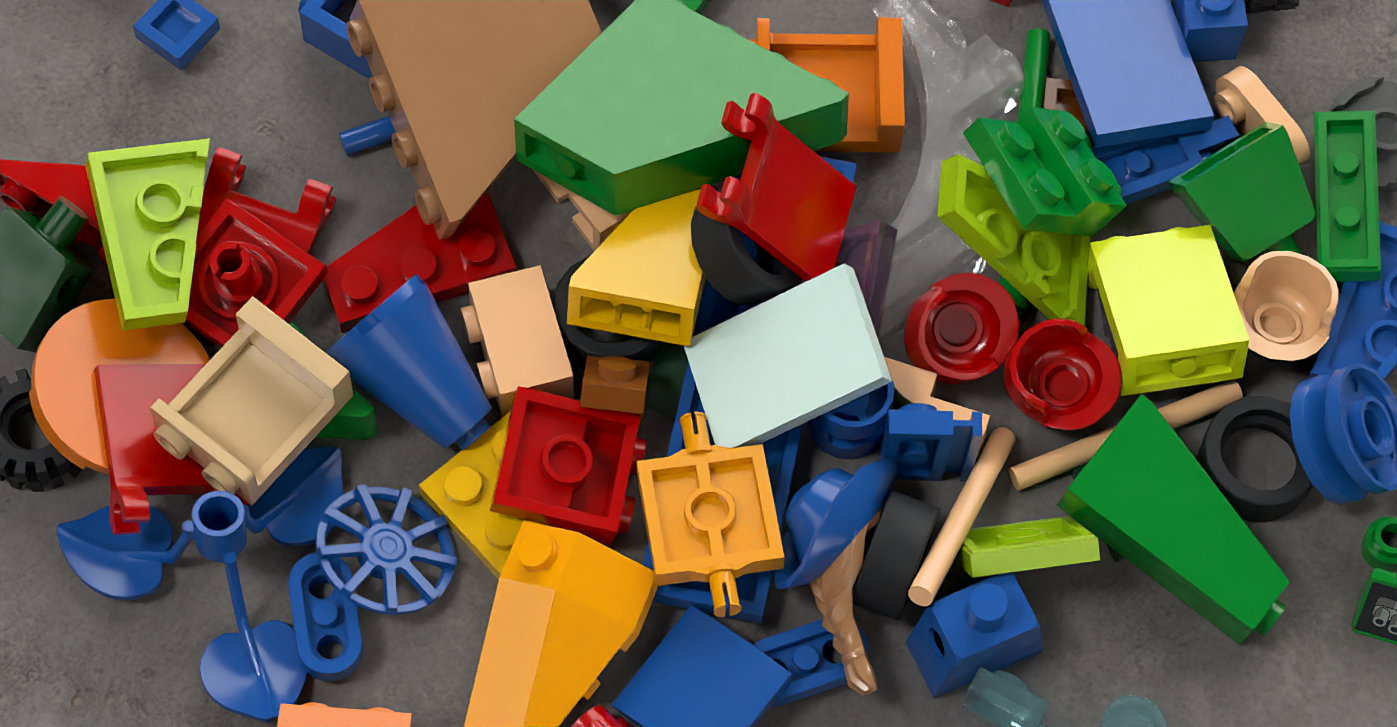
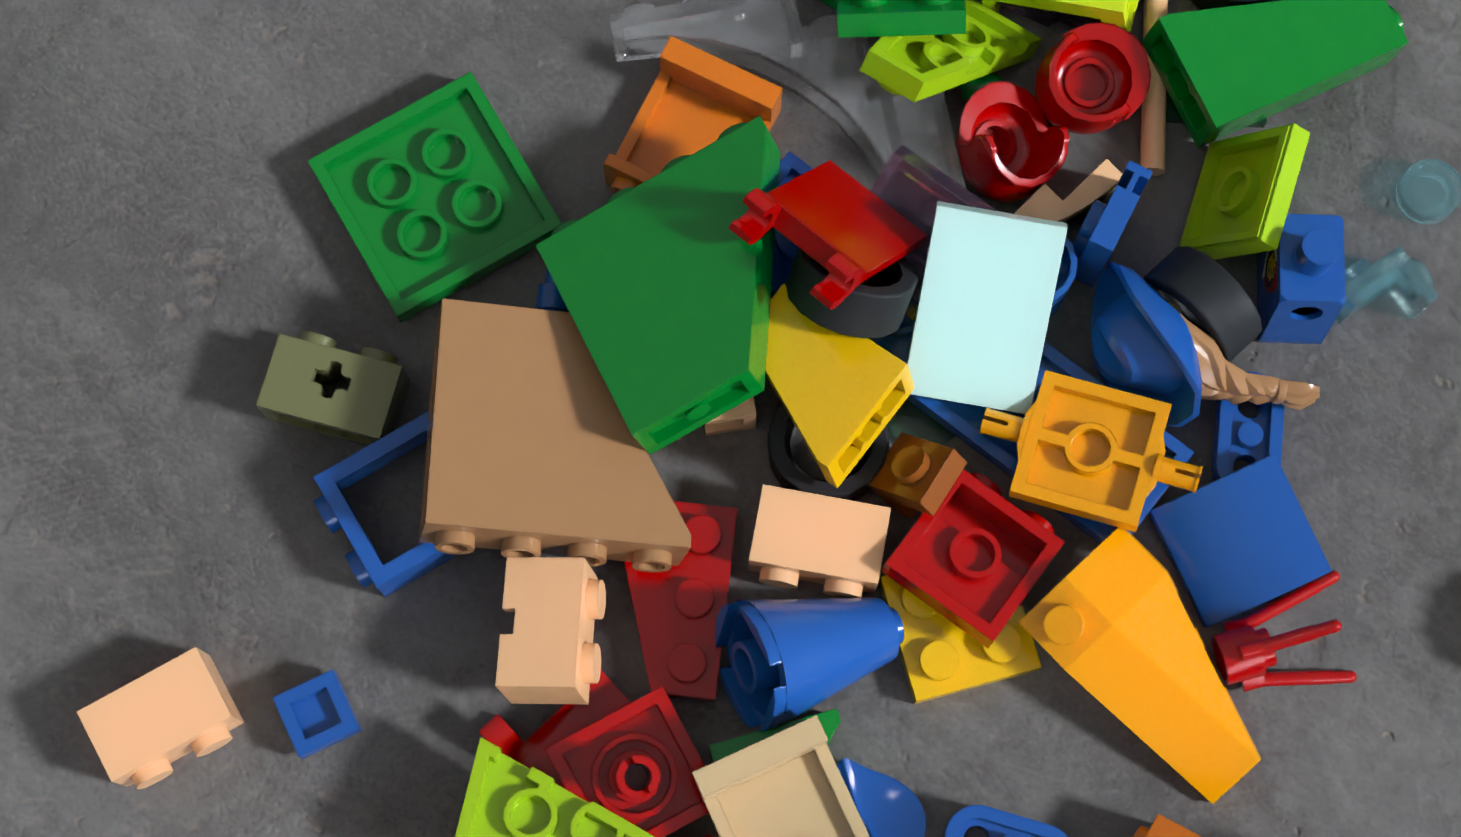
camera: 60 degrees left, 10 degrees up
(327, 153) = (552, 638): none -> light nougat brick
(386, 548) = (970, 761): wheel -> none
(961, 517) = (1201, 238): light nougat bar -> none

